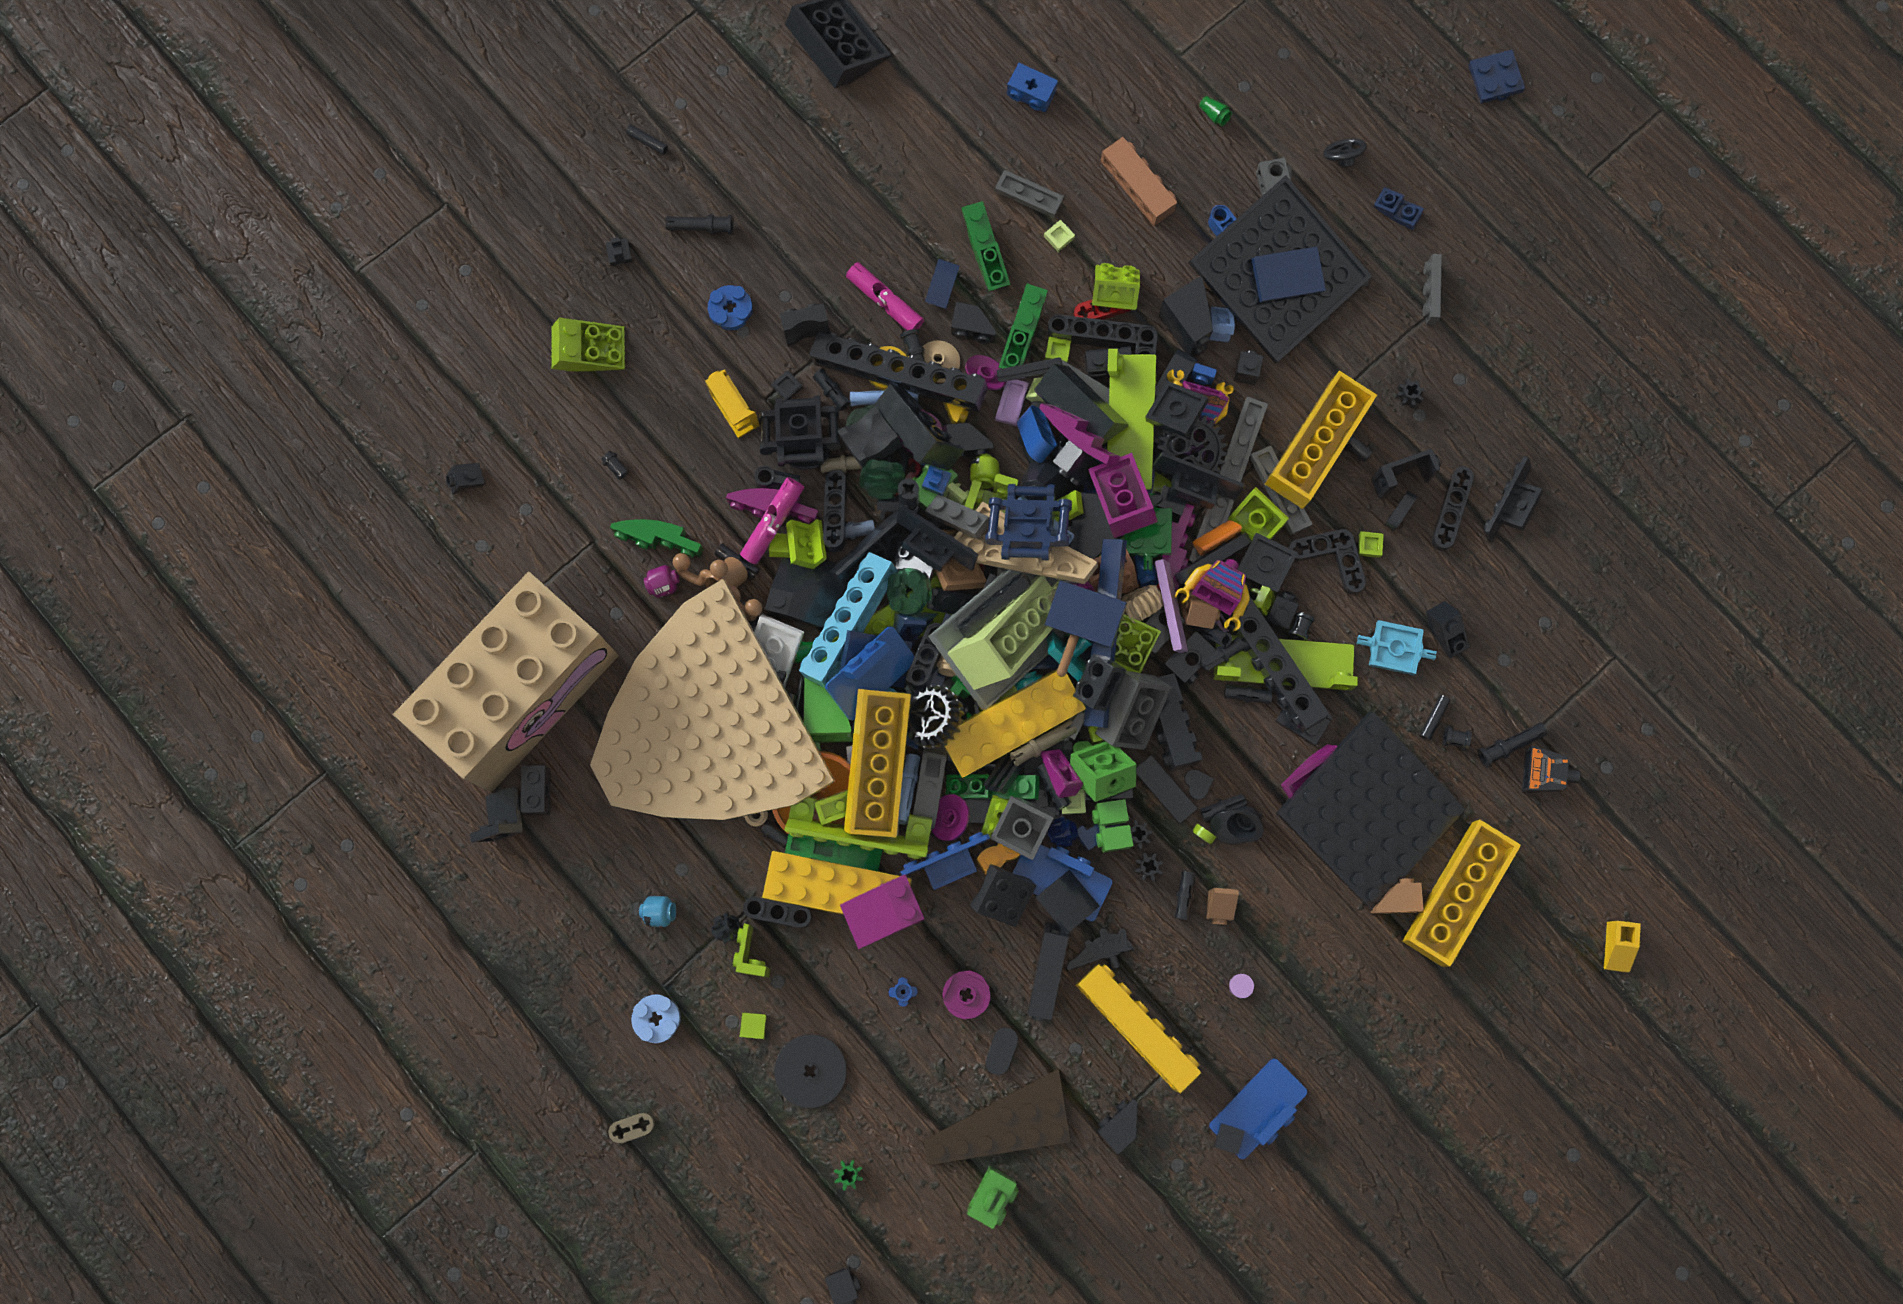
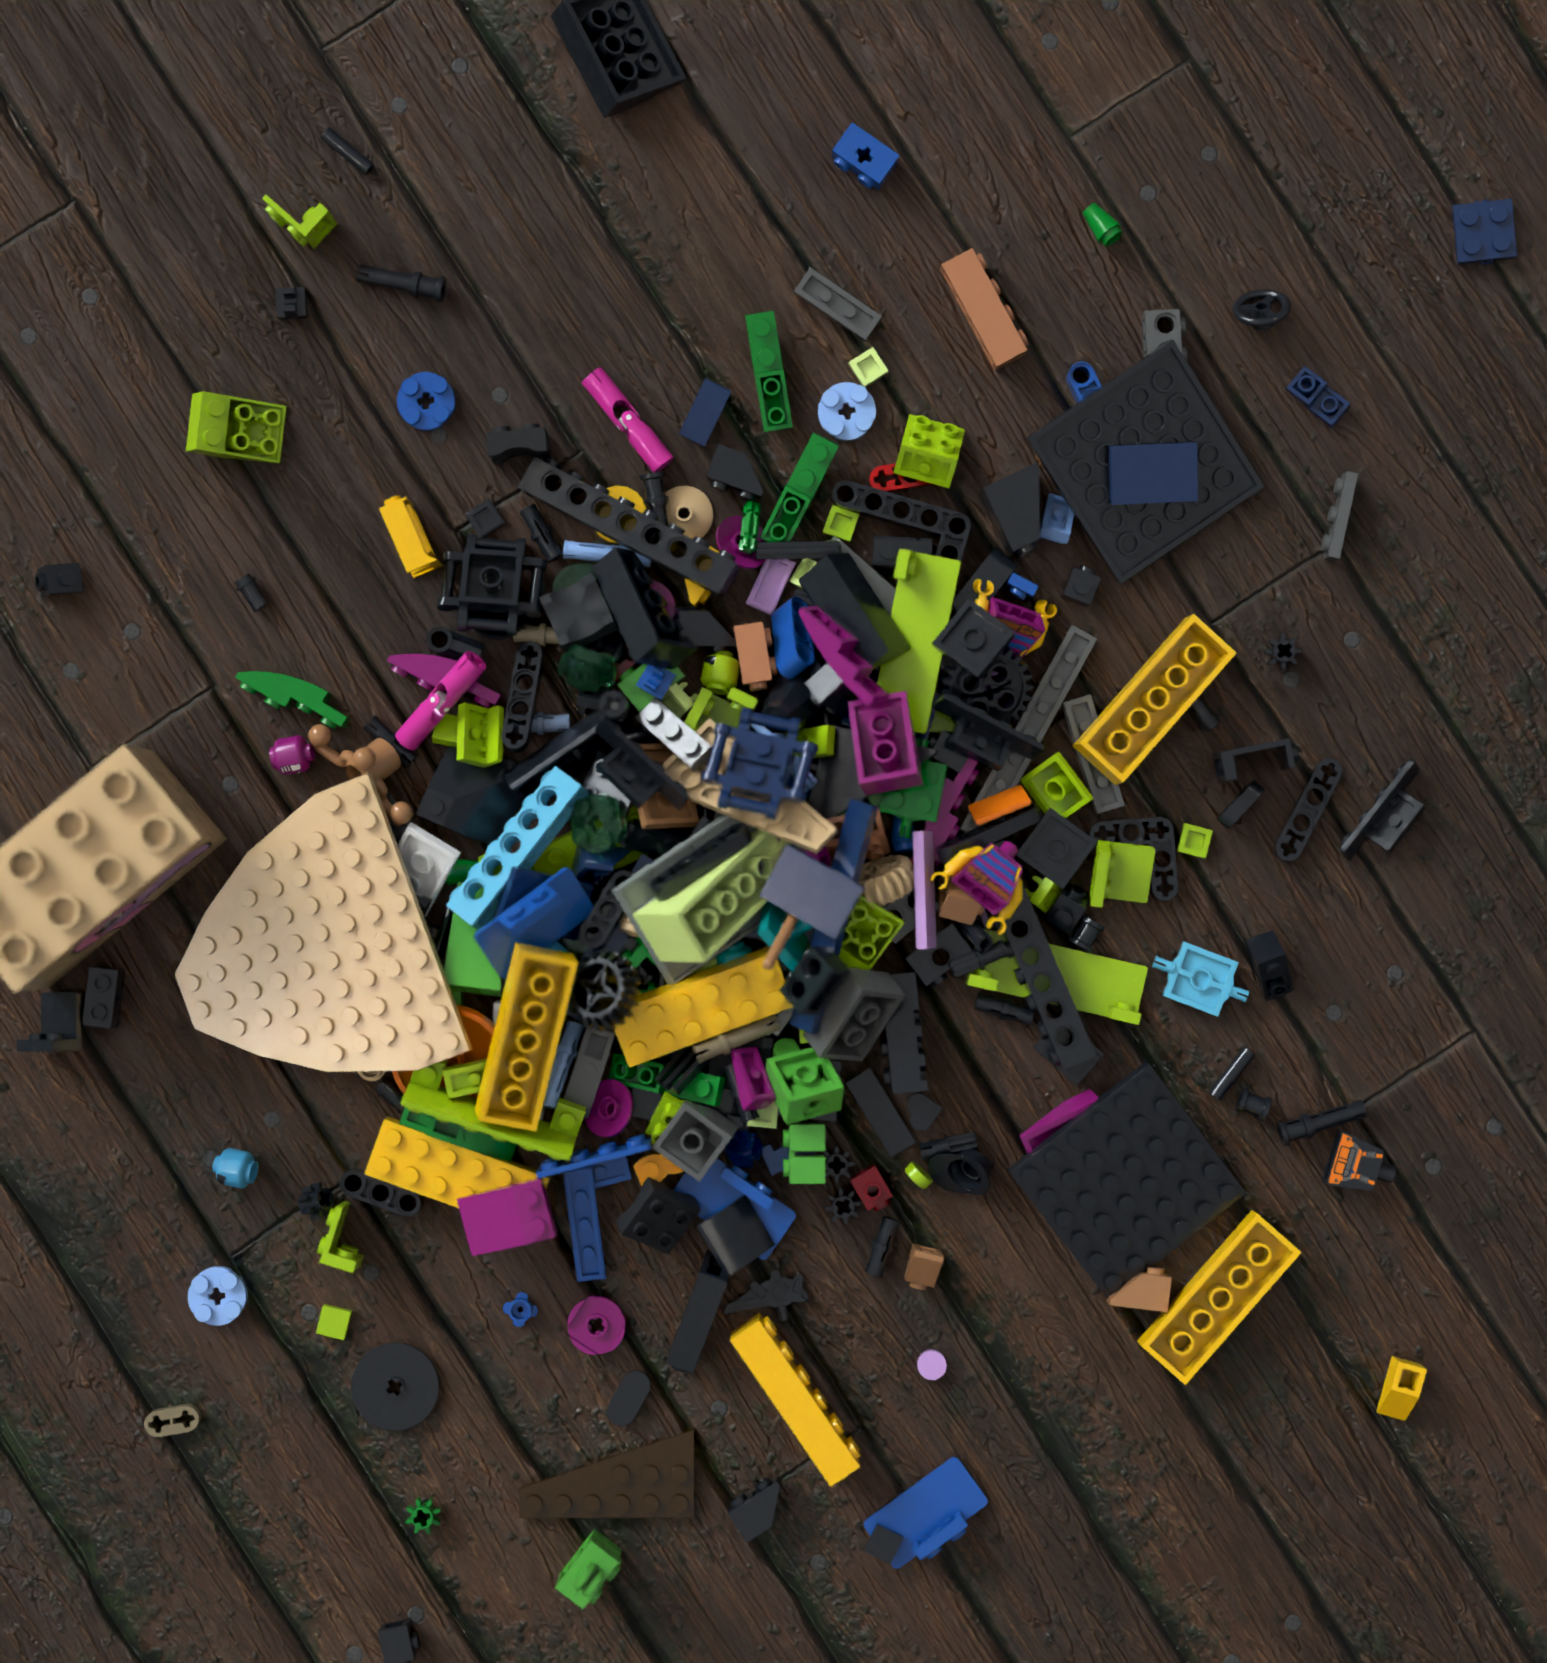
camera: 10 degrees right, 10 degrees up
(623, 196) = (315, 225): none -> lime bracket
(944, 912) = (584, 1224): none -> blue tile
(989, 360) = (749, 527): none -> green axle
(1008, 450) = (755, 664): none -> nougat brick
(1054, 258) = (836, 424): none -> light blue plate
(1169, 849) = (871, 1188): none -> dark red brick
(1320, 574) = (1121, 872): none -> lime bracket

